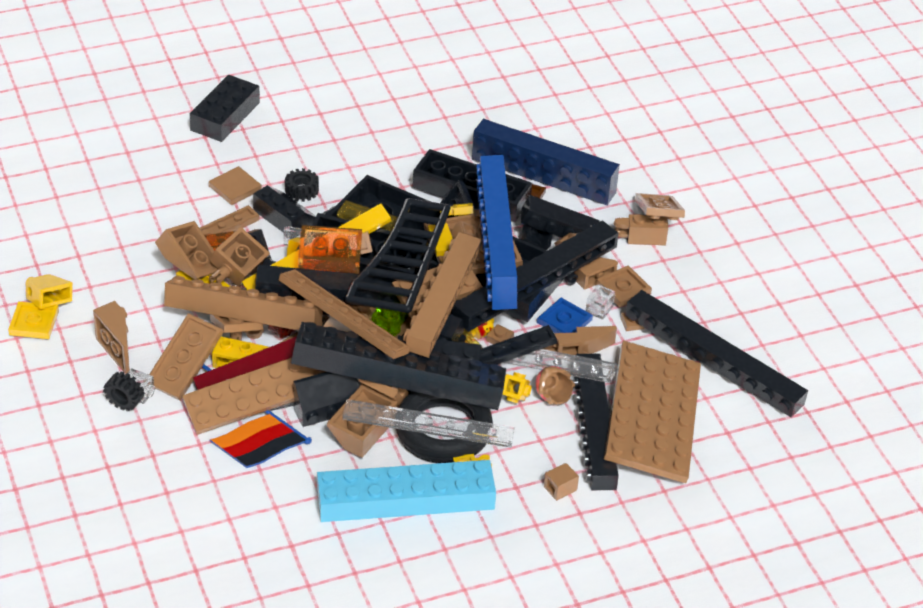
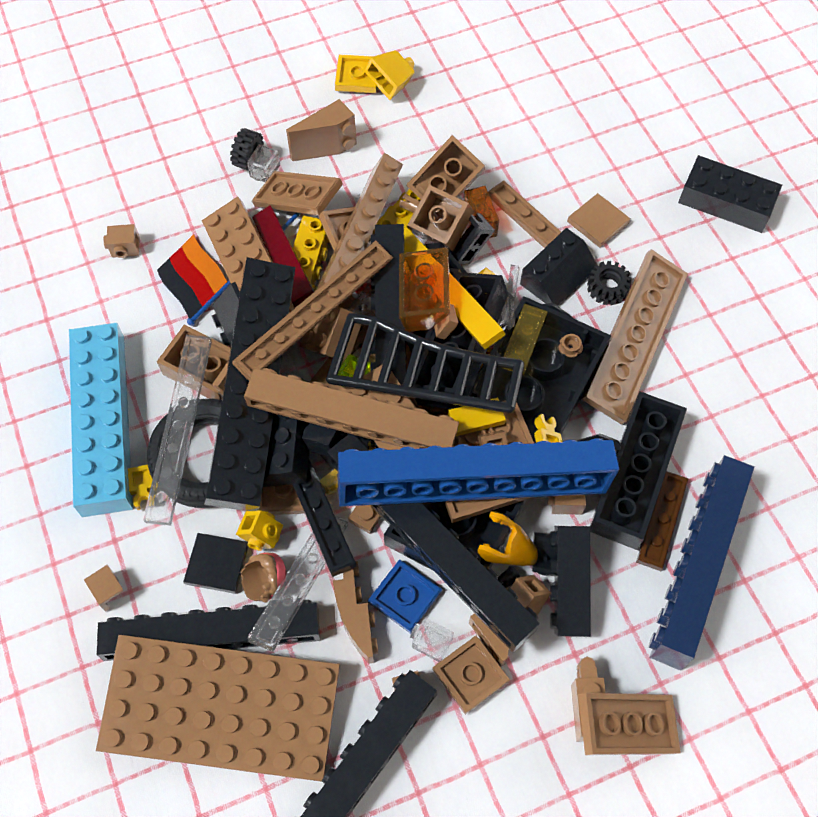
camera: 90 degrees right, 20 degrees up
(215, 485) = (122, 240): none -> medium nougat brick
(343, 169) = (635, 337): none -> medium nougat plate
(377, 192) = (570, 340): none -> medium nougat plate
(536, 238) = (519, 548): none -> light orange animal
(538, 421) = (216, 563): none -> black tile

